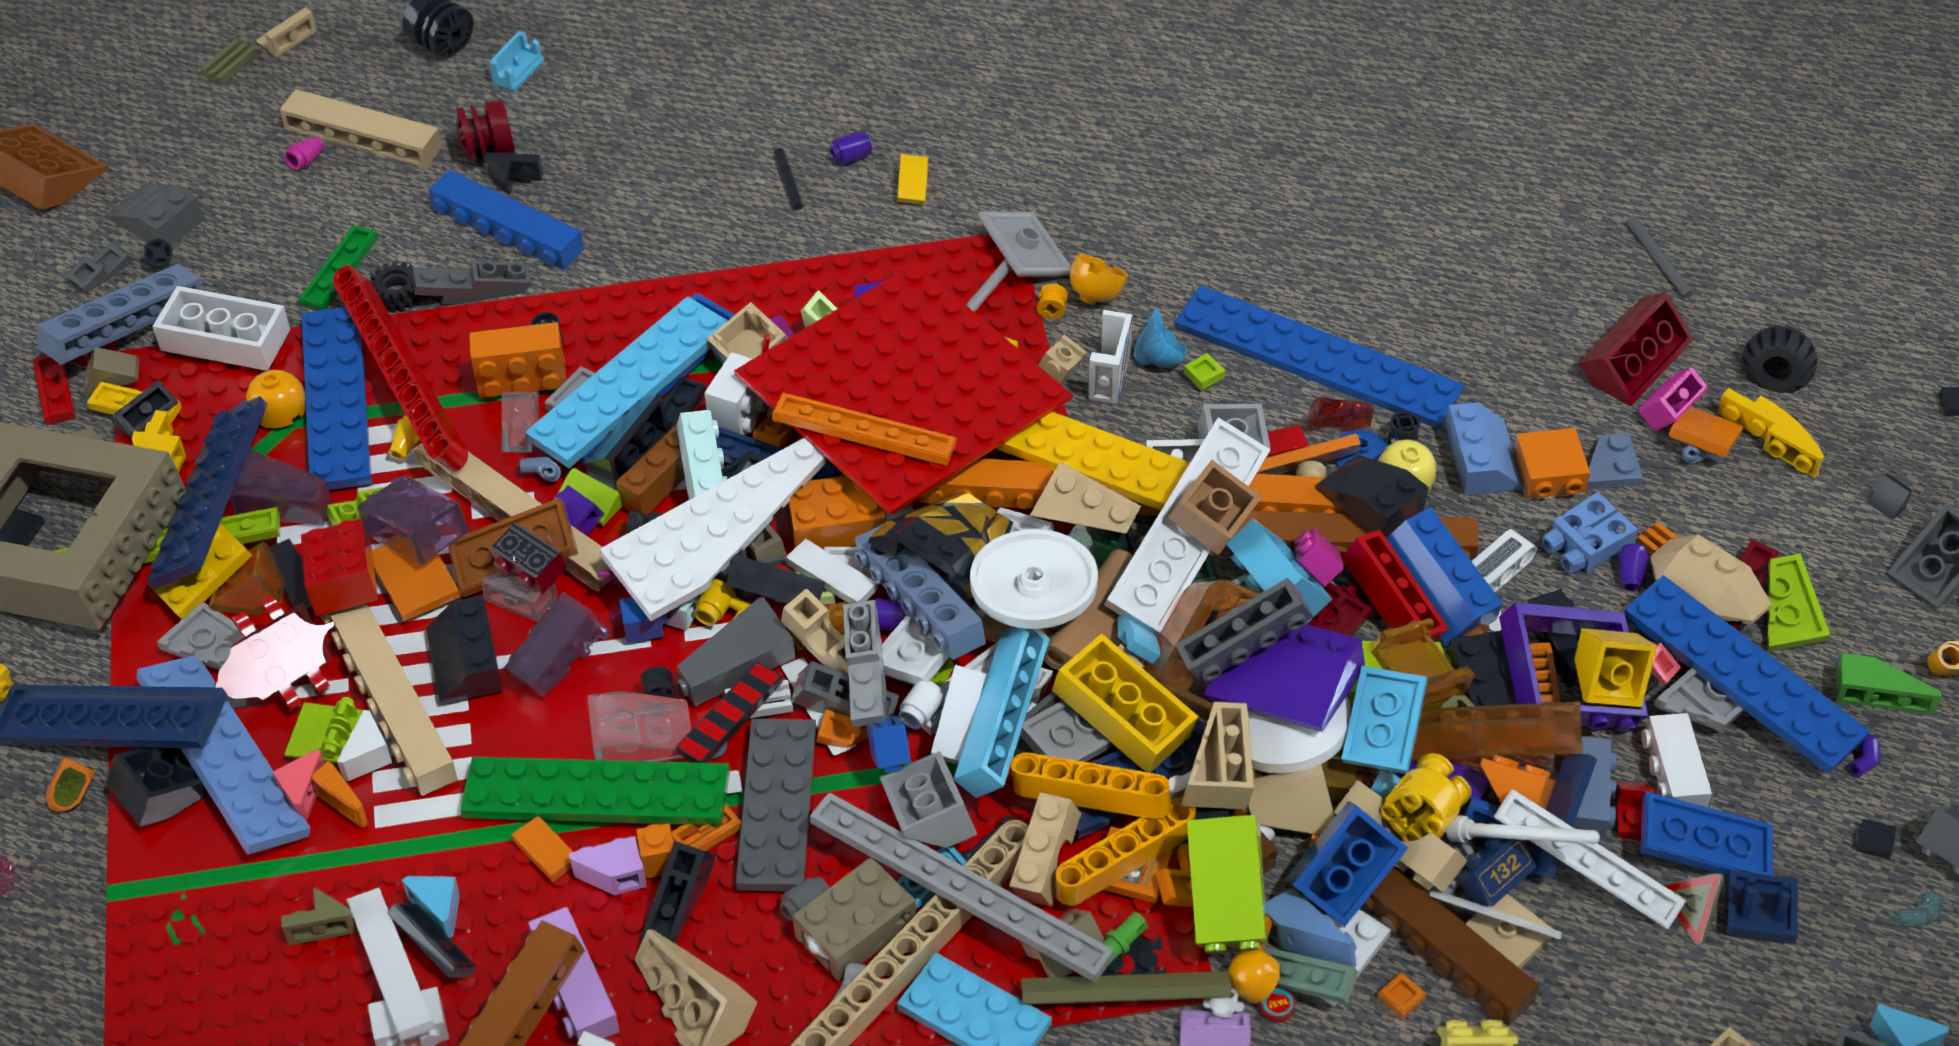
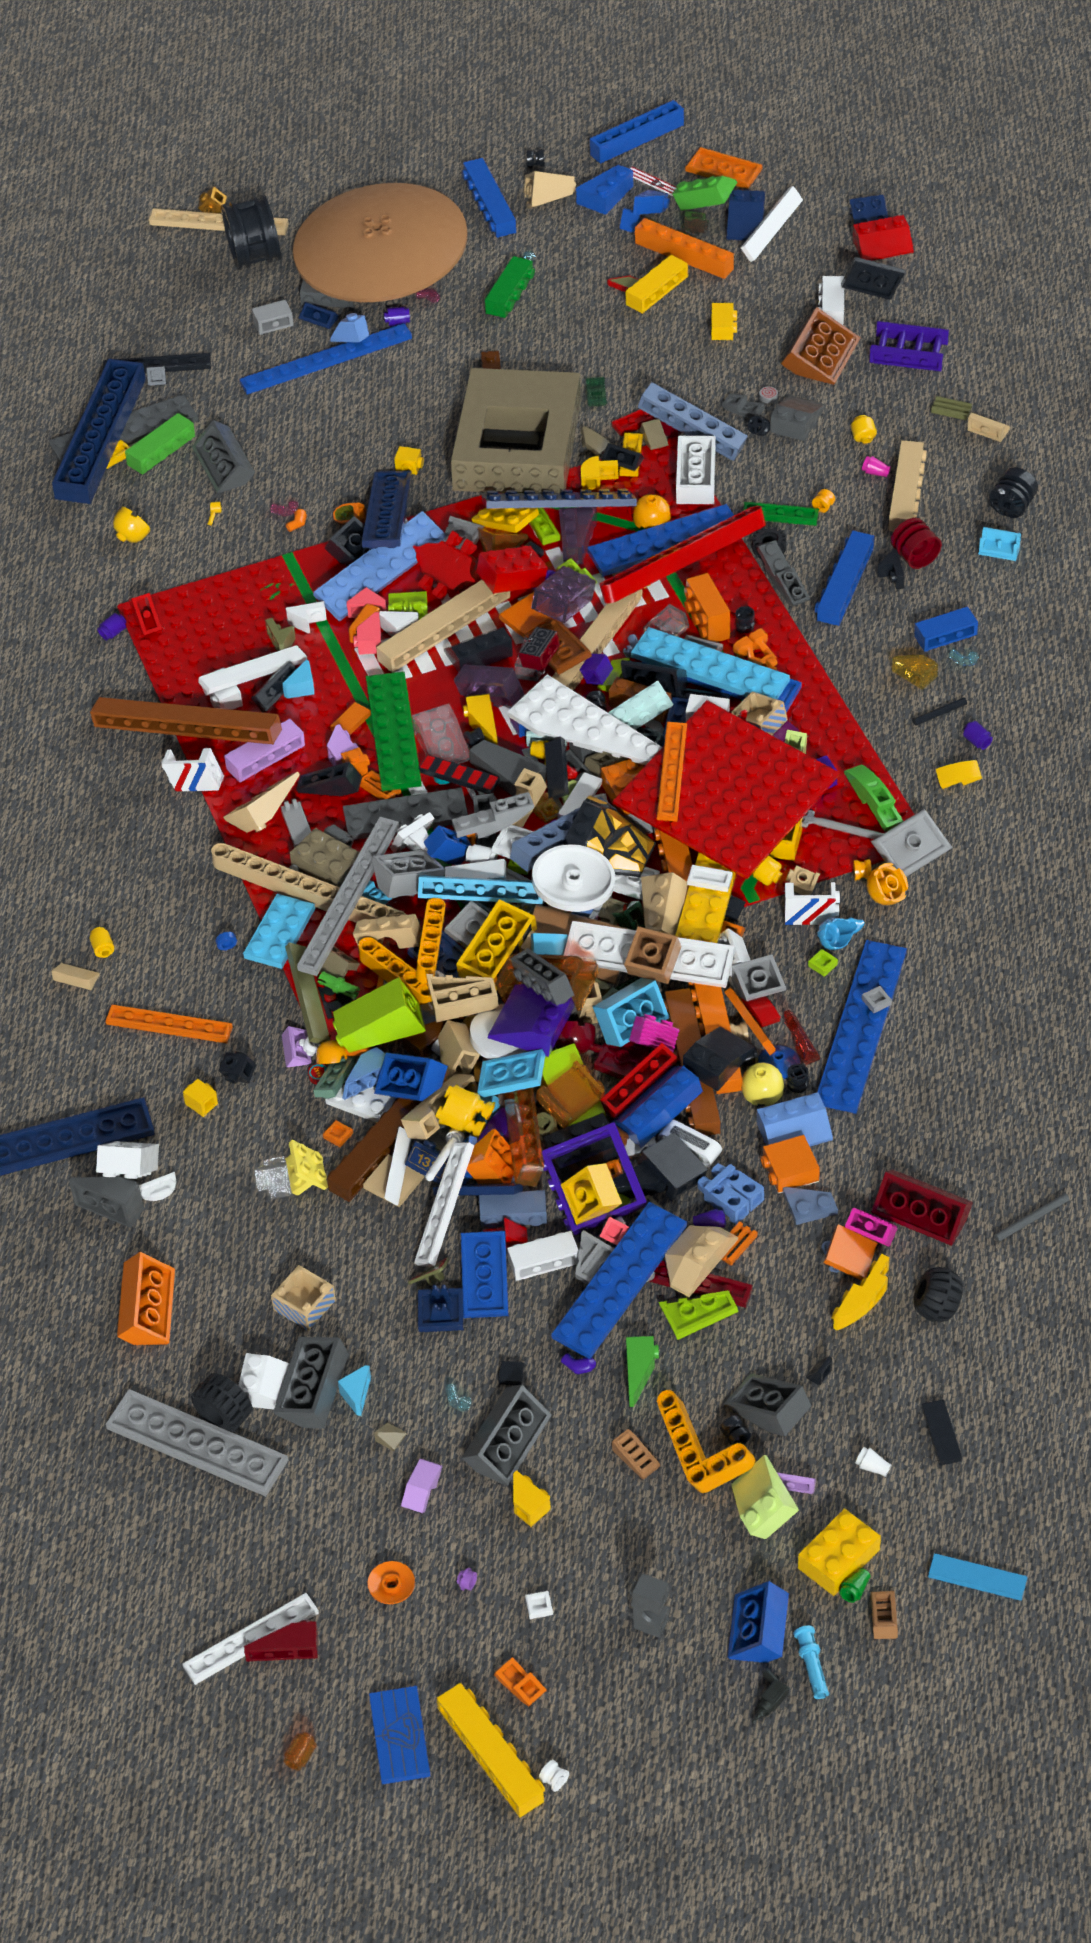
camera: 80 degrees right, 0 degrees up
(41, 864) = (299, 520): none -> orange arm
(90, 237) = (768, 394): none -> light grey tile
(96, 92) = (906, 357): none -> dark purple fence
(226, 149) = (863, 429): none -> yellow head
(287, 875) = (302, 615): none -> white slope
(343, 214) = (823, 500): none -> light orange wheel
(377, 788) = (368, 635): none -> coral slope
(601, 338) = (756, 641): none -> orange piece
(620, 667) = (480, 715): none -> yellow slope
(646, 141) = (946, 629): none -> blue brick
(706, 137) = (969, 660): none -> clear light blue arm
(711, 182) = (915, 669): none -> clear yellow slope
(753, 955) = (295, 821): none -> light grey hinge
(845, 777) = (413, 835): none -> white plate
(937, 252) = (875, 794): none -> bright green slope
(1063, 434) = (709, 878): none -> white tile
(1296, 321) = (876, 999): none -> light grey plate
(1545, 579) = (673, 1164): none -> black panel

